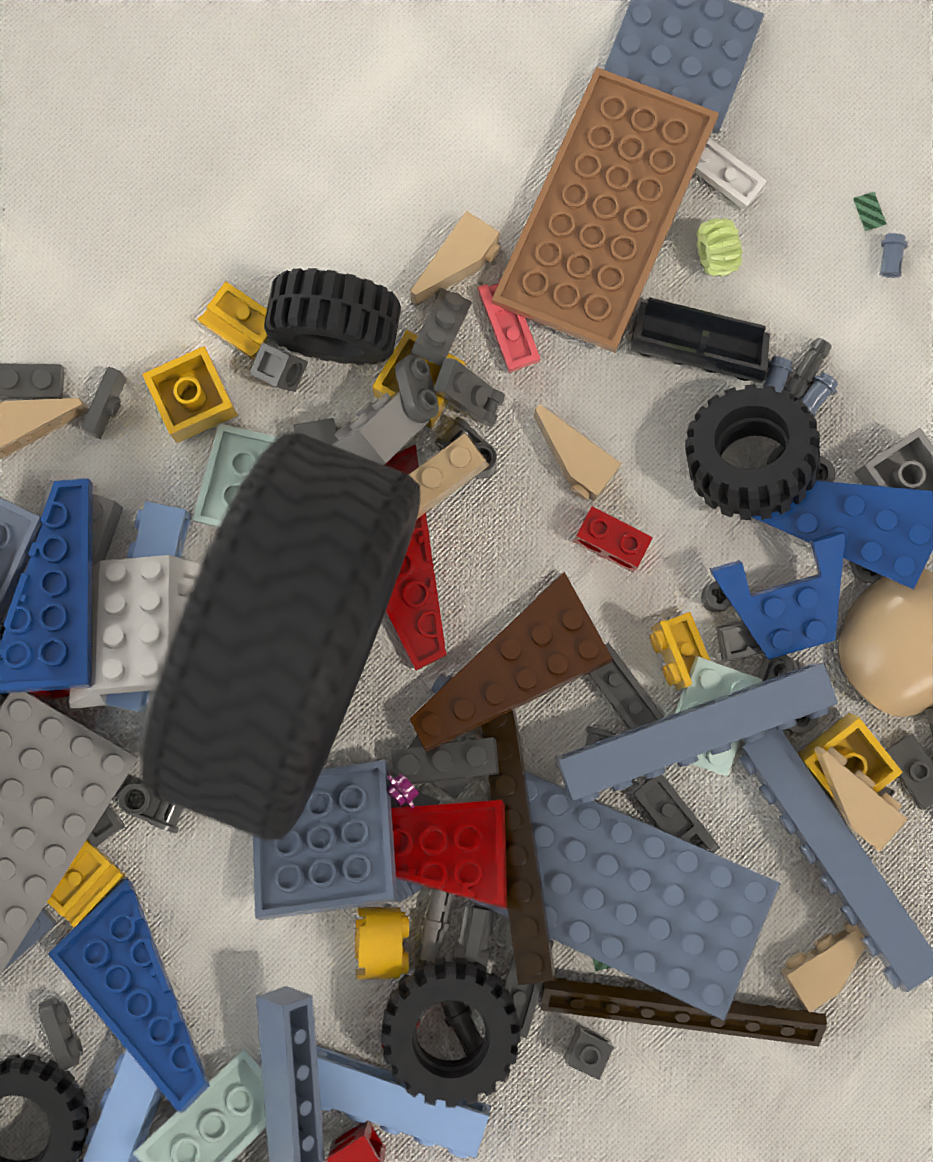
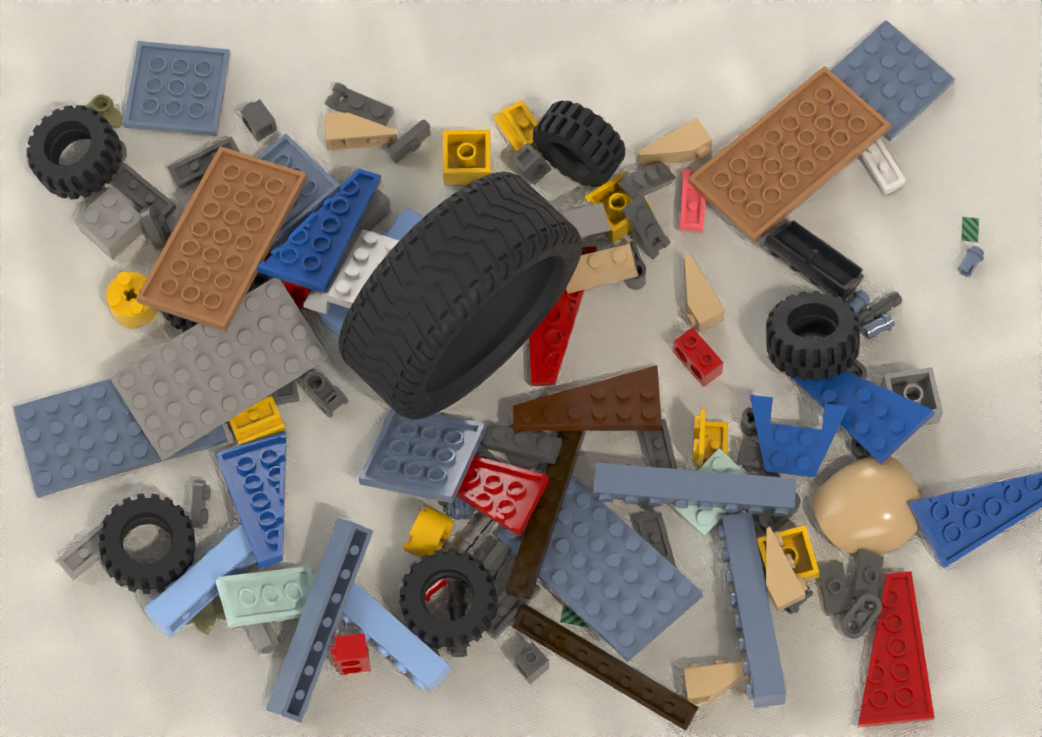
camera: 30 degrees right, 15 degrees down
(402, 790) = (487, 444): magenta plate -> none
(416, 388) = (611, 206): dark grey plate -> none
(719, 247) = (853, 207): yellowish green gear -> none

